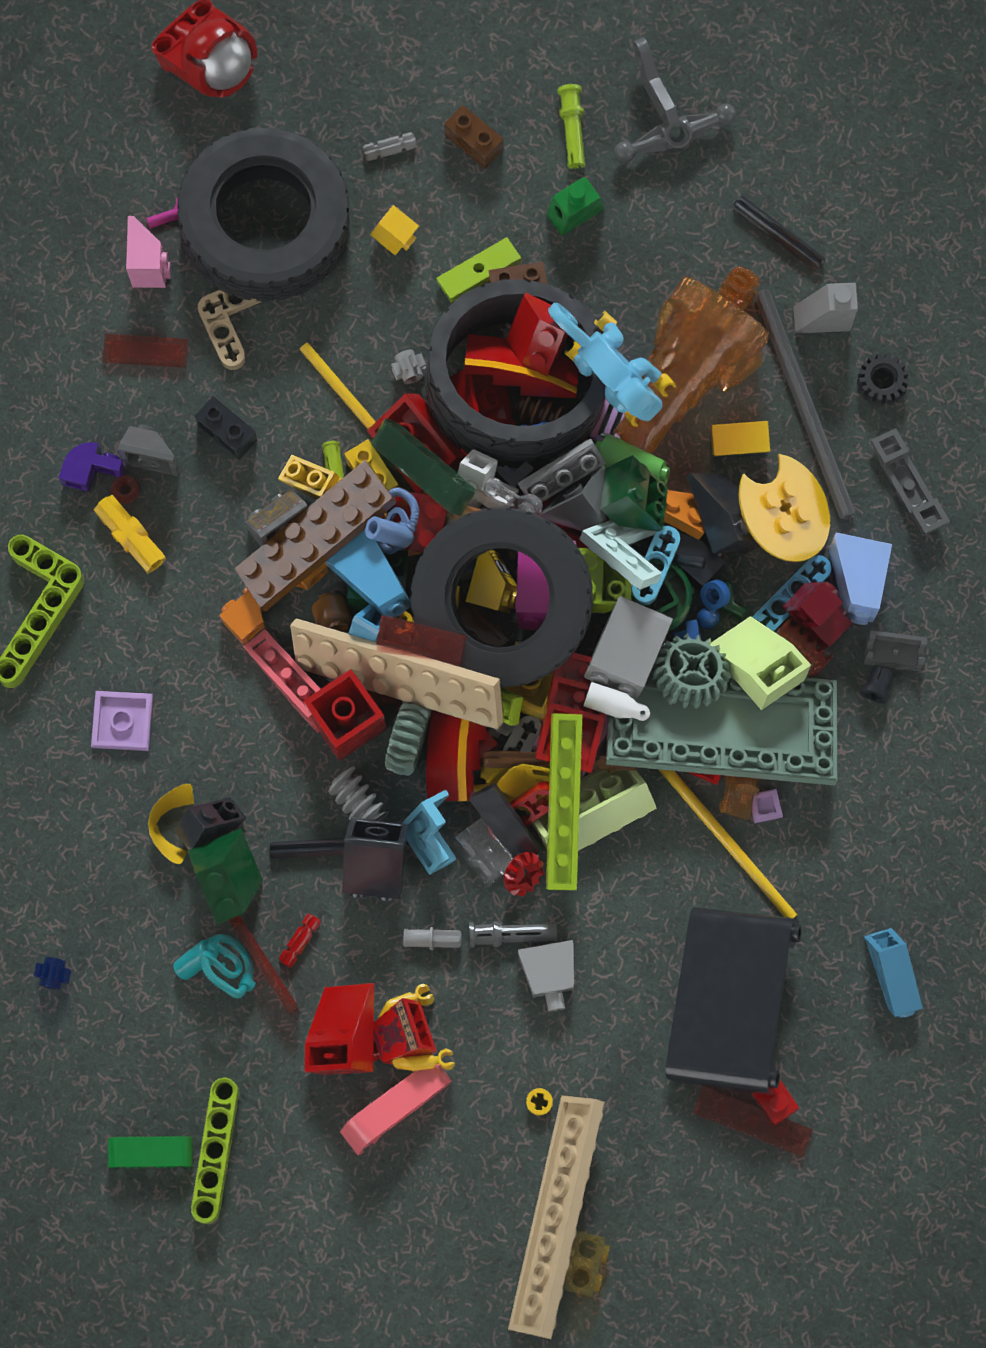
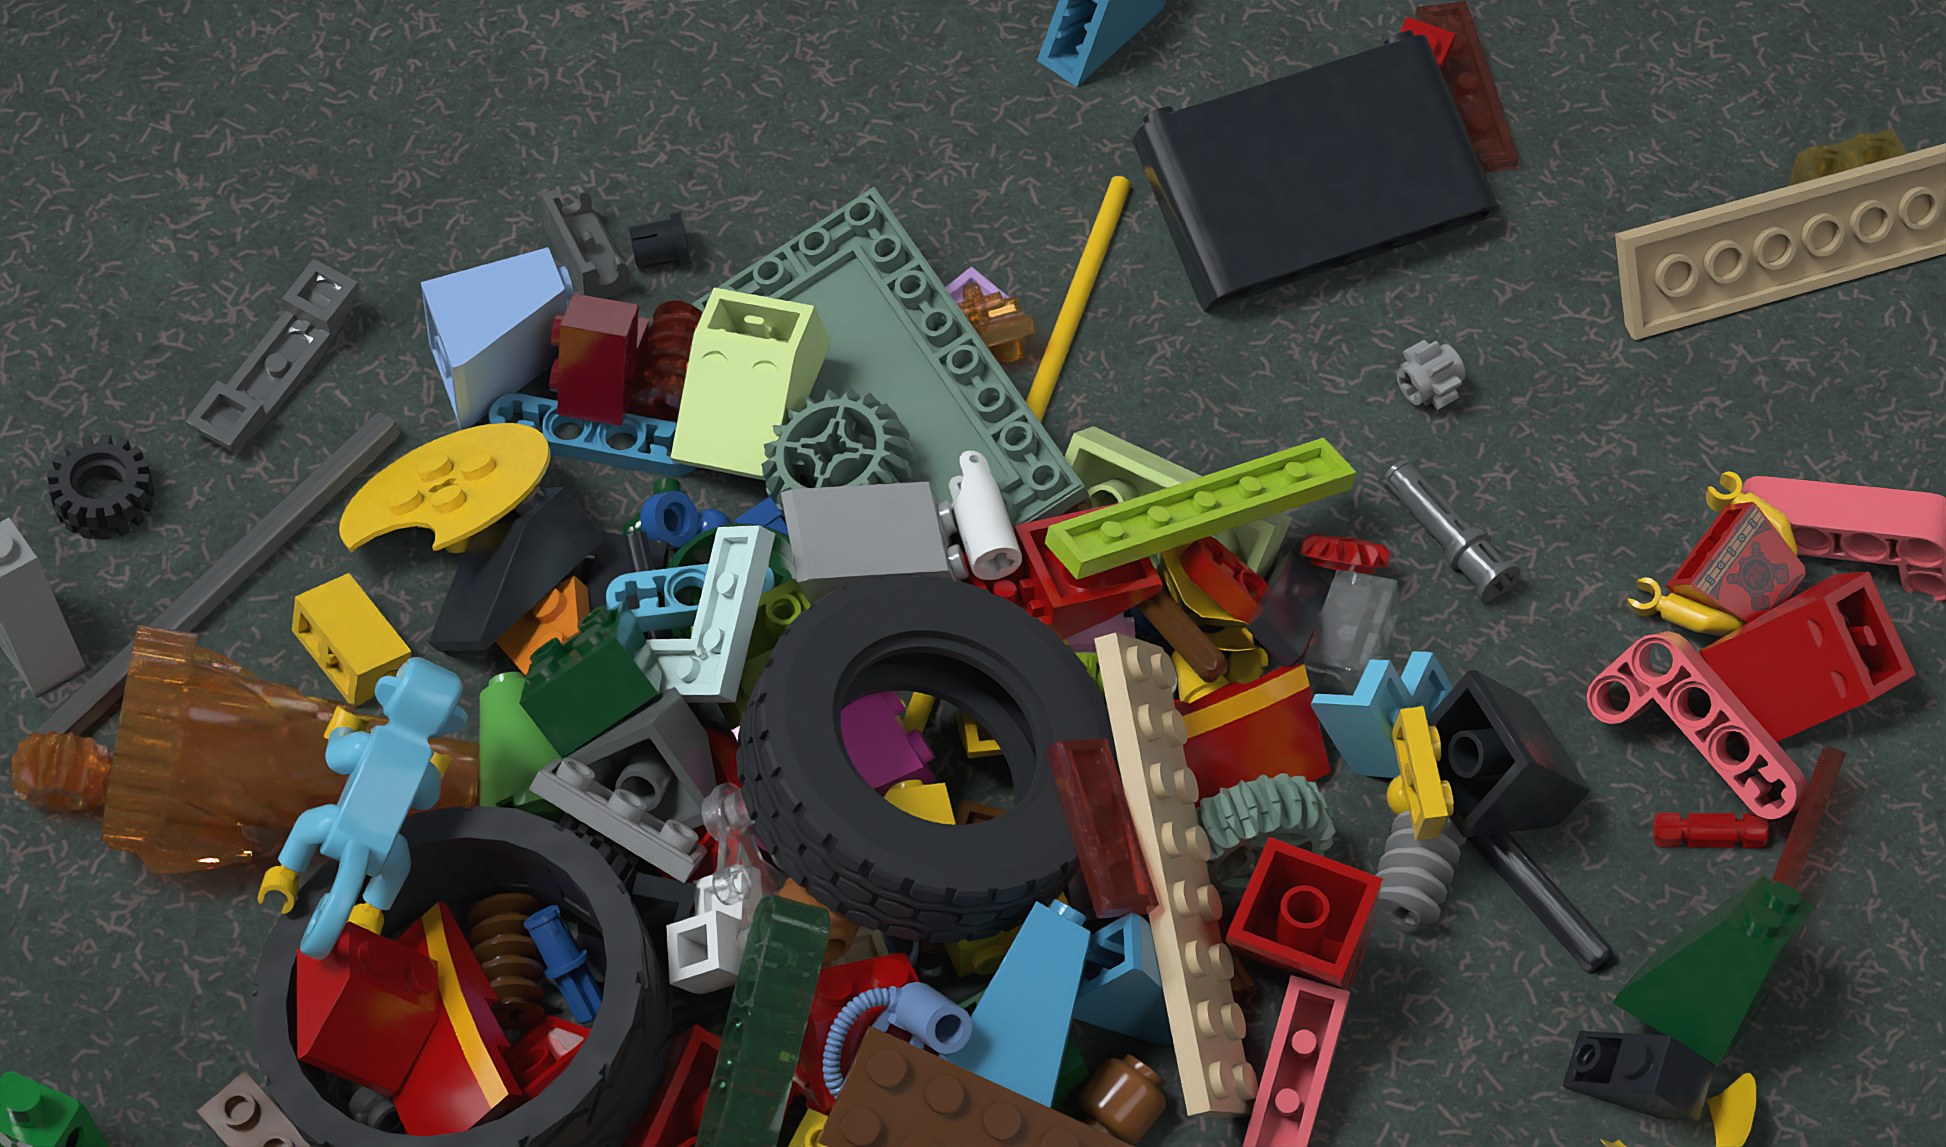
camera: 125 degrees left, 20 degrees down
(205, 955) = (1863, 925): teal piece -> none
(342, 966) = (1706, 733): none -> coral beam
(384, 811) = (1419, 783): none -> yellow plate
(432, 938) = (1549, 636): light grey axle -> none
(547, 1097) = (1663, 372): yellow bush -> none
(549, 971) = (1465, 441): light grey torso -> none
(594, 979) = (1431, 374): none -> light grey gear

